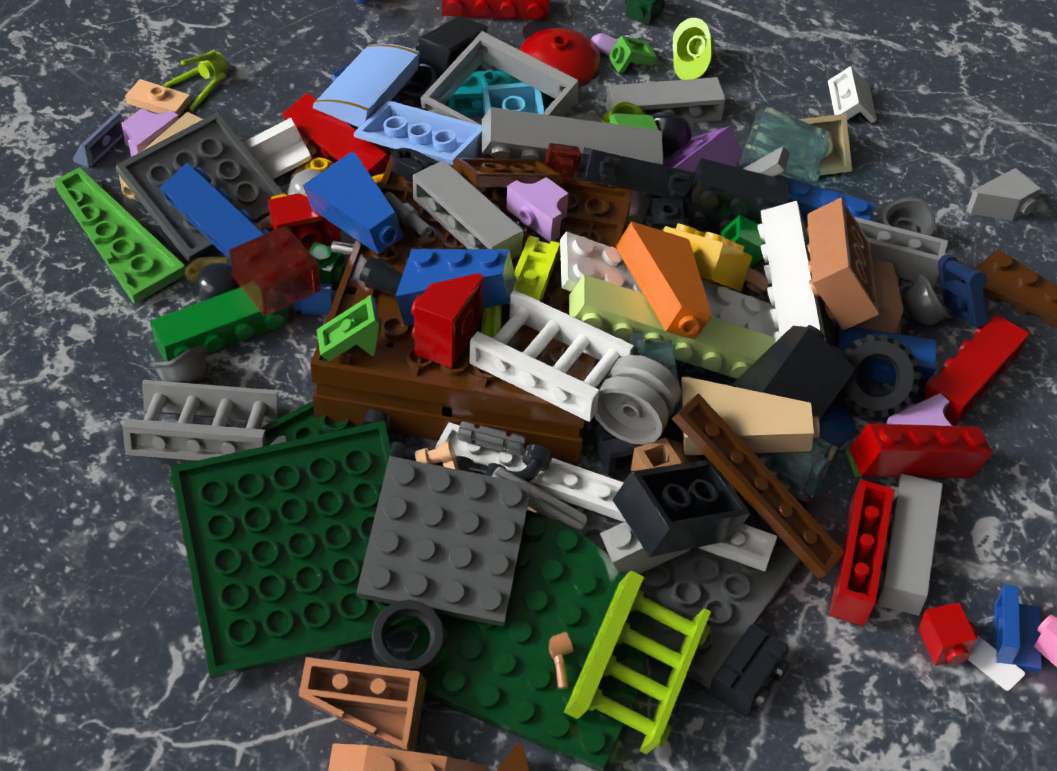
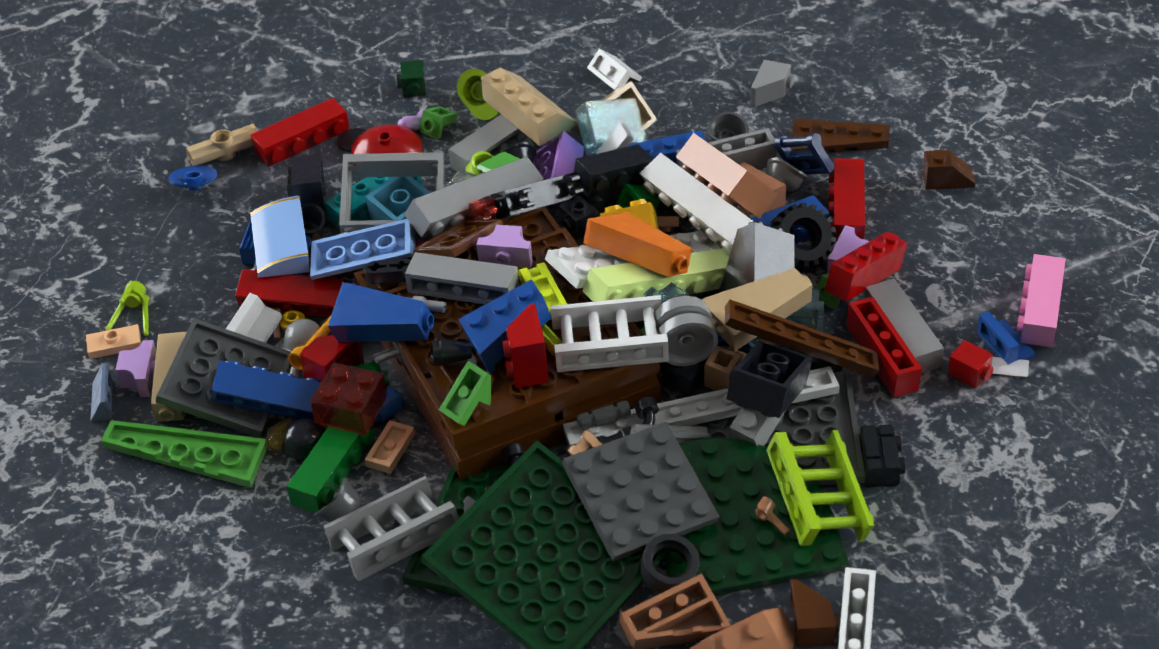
camera: 30 degrees left, 5 degrees down
(283, 342) = (390, 447): none -> light nougat plate
(719, 82) = (525, 106): none -> tan slope

